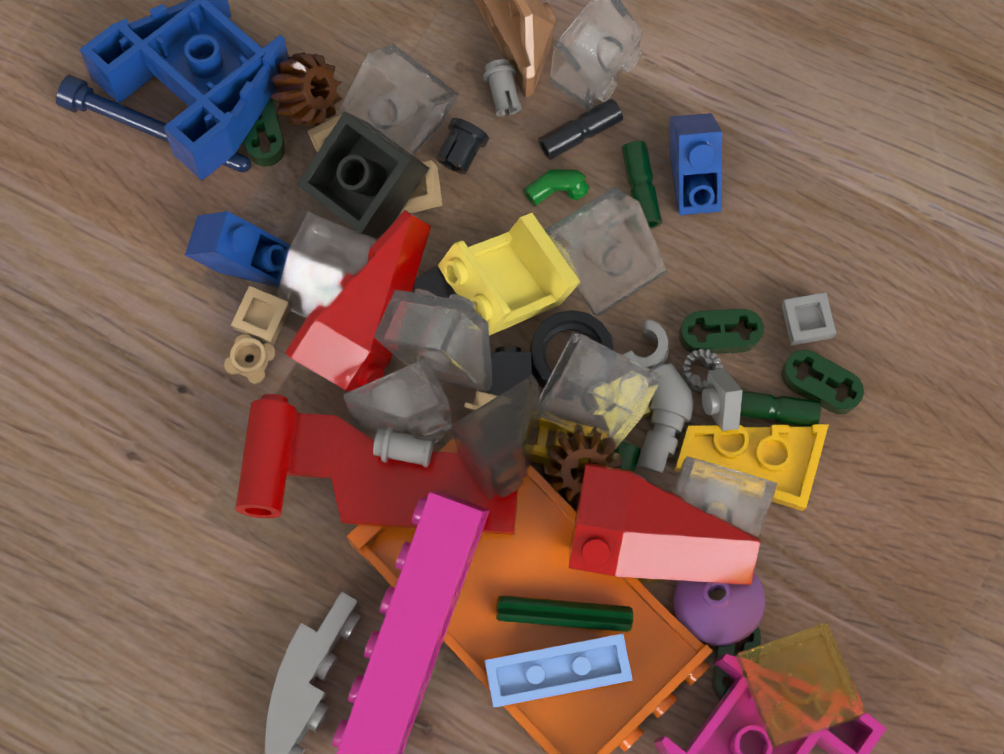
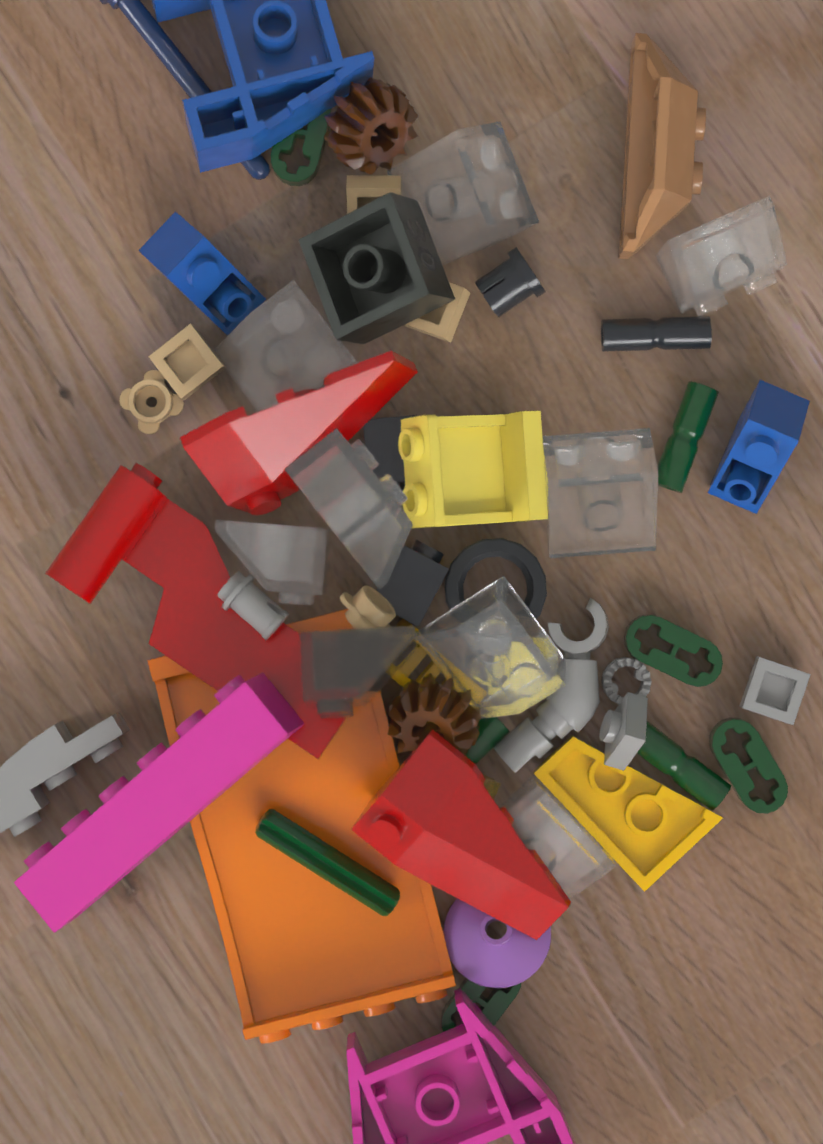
camera: 30 degrees right, 15 degrees up
(502, 85) = (596, 236): light grey pin -> none
(557, 180) = (596, 382): green arm -> none
(558, 670) = (288, 916): light blue plate -> none
(800, 685) = (516, 1077): clear yellow plate -> none

